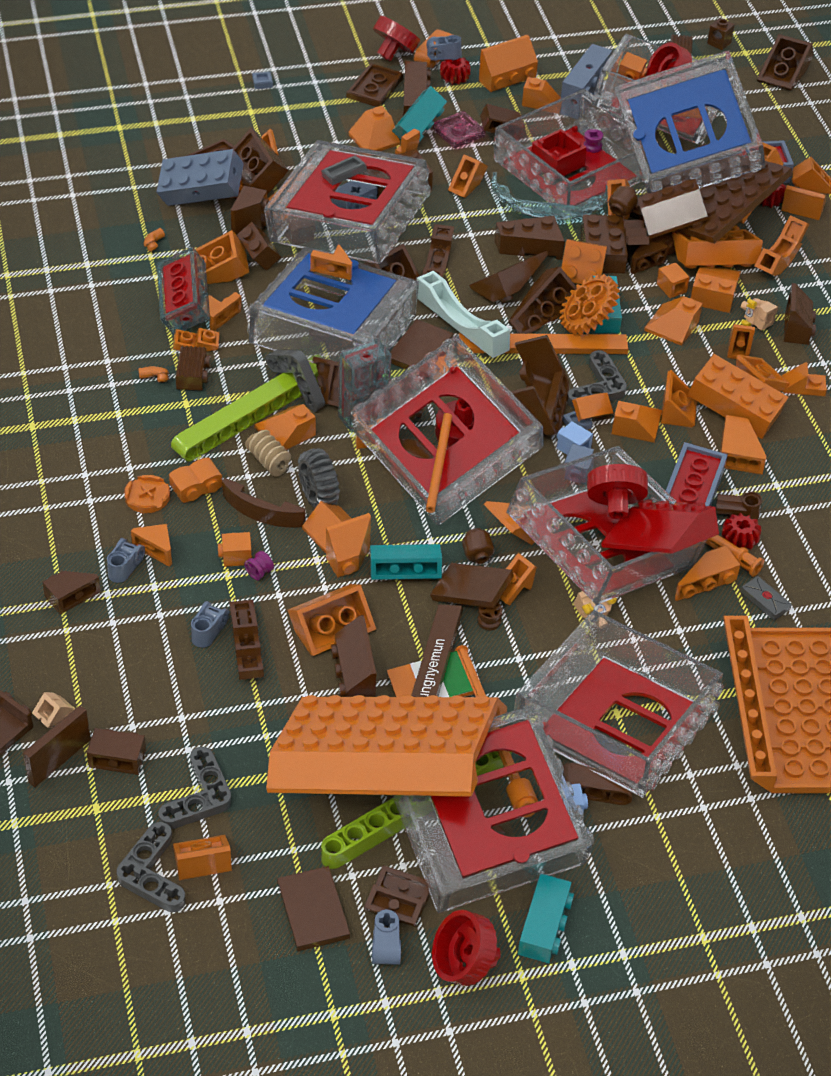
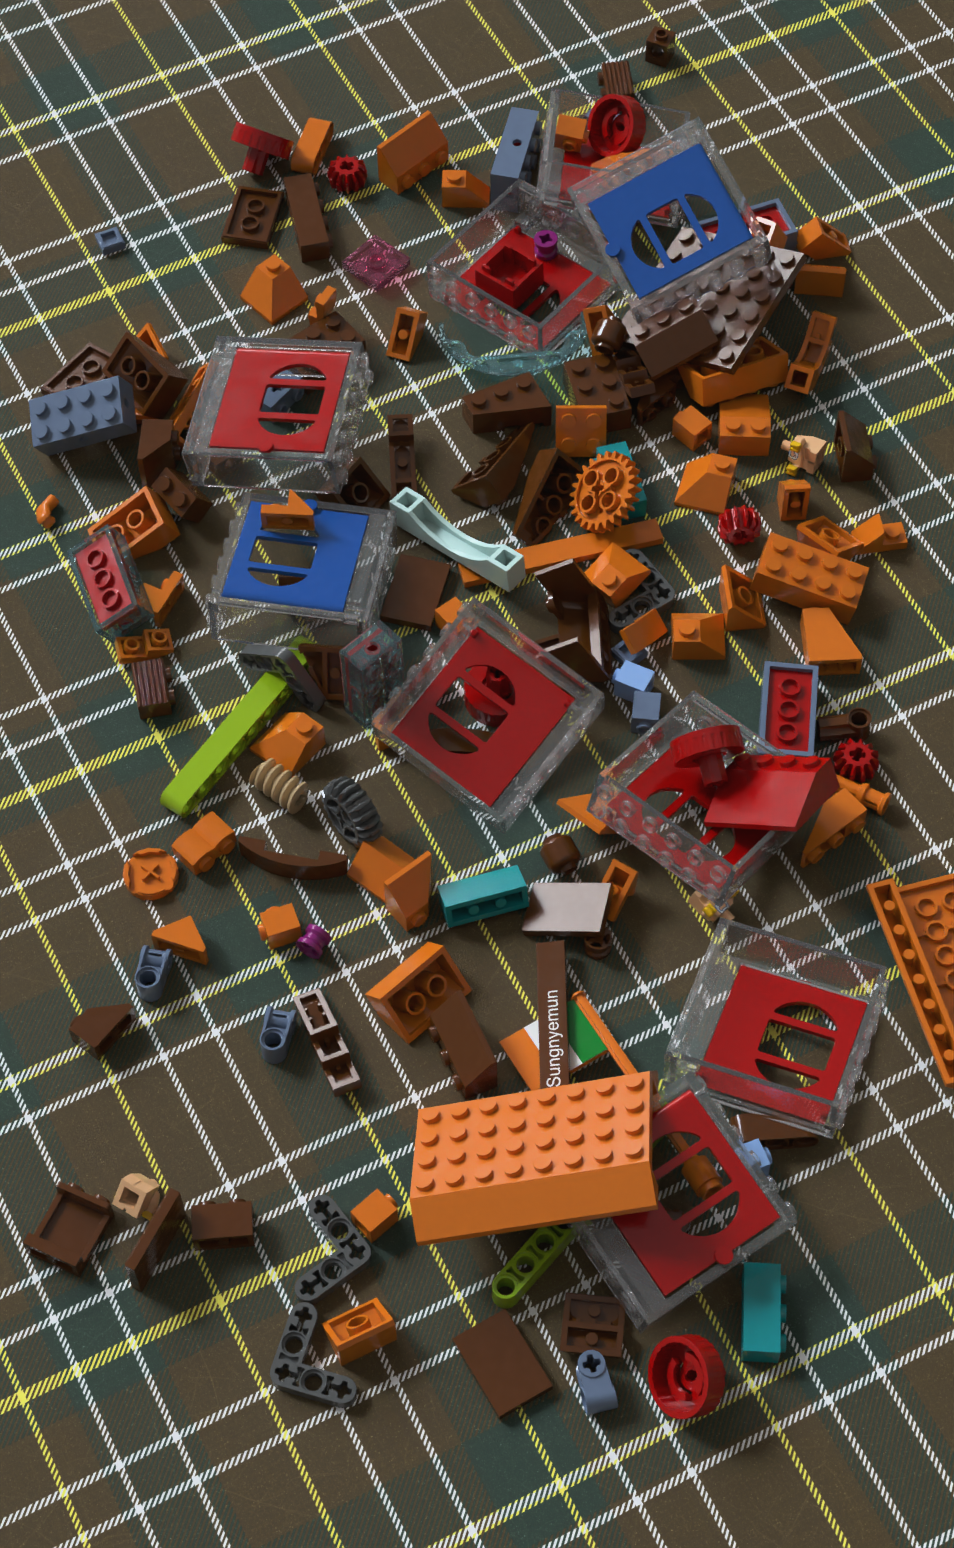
camera: 10 degrees left, 10 degrees up
(153, 371) = (106, 702): orange arm -> none
(243, 771) = (375, 1215): none -> orange brick
(344, 170) = (265, 378): dark grey tile -> none
(421, 113) = (325, 257): teal brick -> none
(438, 464) = (491, 763): orange piece -> none
(447, 47) = (331, 149): sand blue piece -> none
(494, 116) = (423, 240): reddish brown brick -> none
(583, 365) = (616, 574): none -> orange slope
(691, 349) = (739, 525): none -> red gear
(766, 598) = (903, 841): dark grey tile -> none
(786, 62) = (750, 74): reddish brown slope -> none

